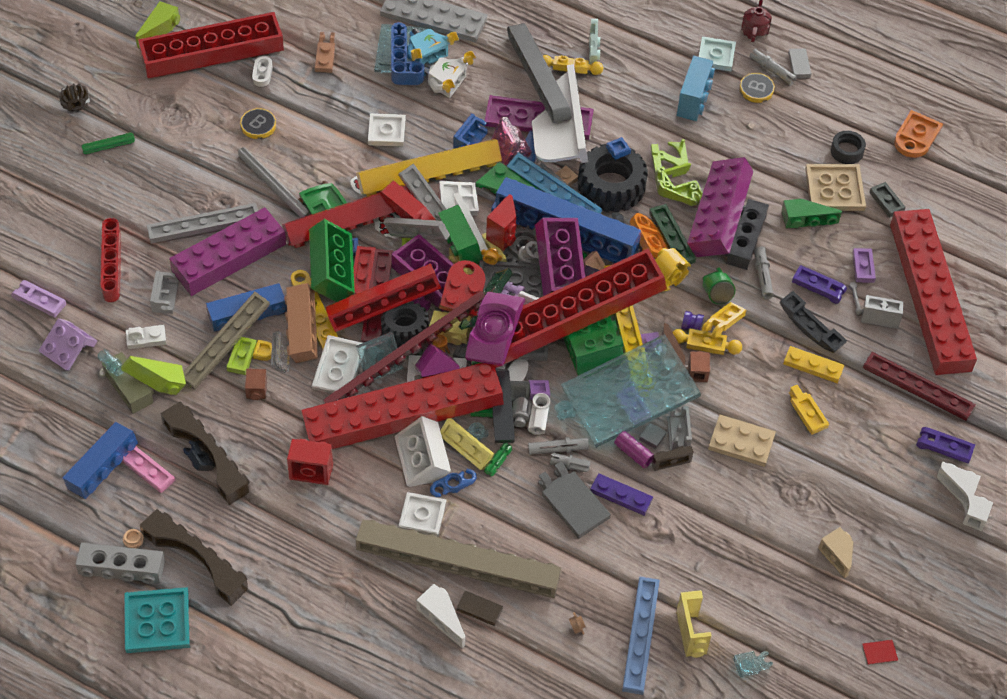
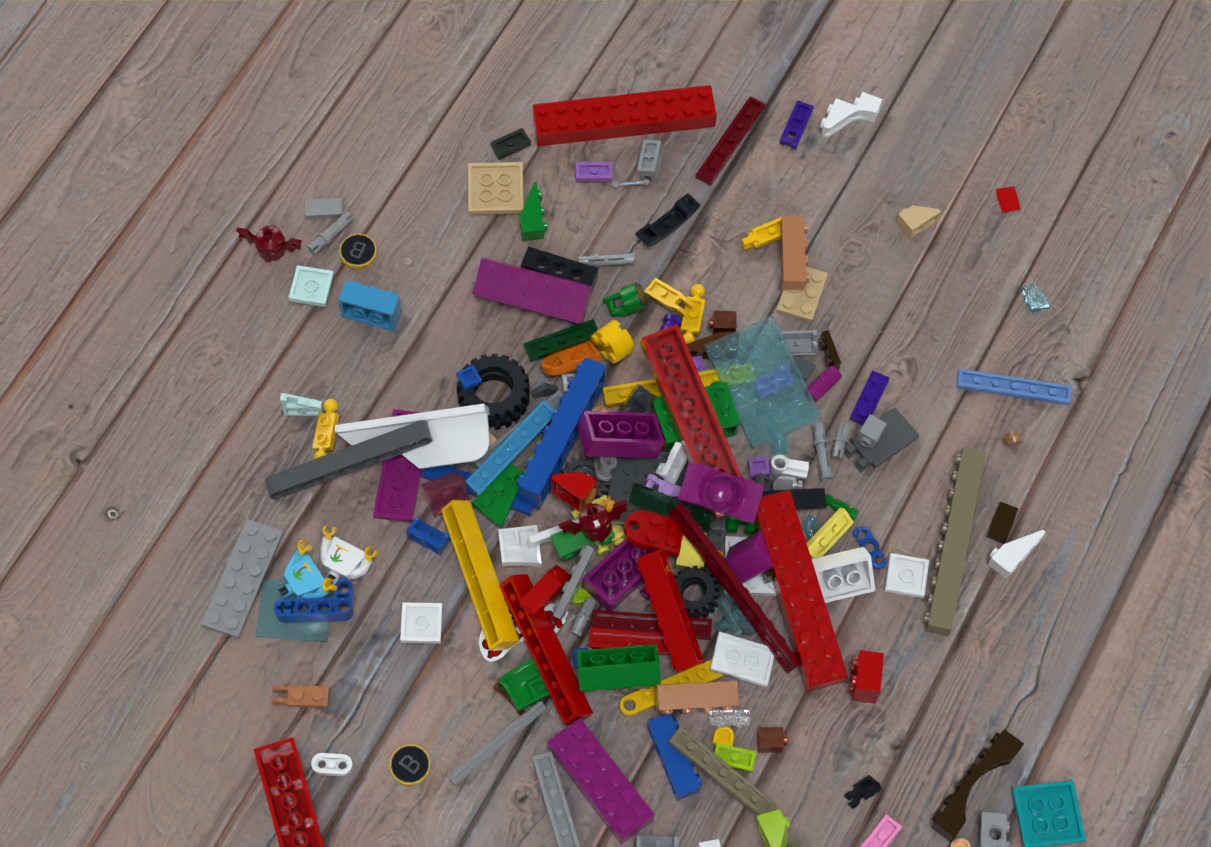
camera: 90 degrees left, 10 degrees up
(183, 425) = (887, 759): dark brown arch -> none
(384, 243) = (583, 617): none -> light grey axle
(421, 190) = (529, 573): light grey tile -> none
(465, 227) = (594, 521): none -> dark red helmet
(576, 482) = (871, 431): none -> light grey brick
(688, 607) = (1010, 345): light yellow panel -> none
(689, 192) = (508, 320): lime piece -> none
(782, 423) = (793, 252): none -> nougat brick
(813, 364) = (711, 226): yellow plate -> none
(819, 284) = (617, 213): dark purple plate -> none
(848, 137) = (442, 184): black tyre -> none
(918, 133) = (424, 109): orange plate -> none

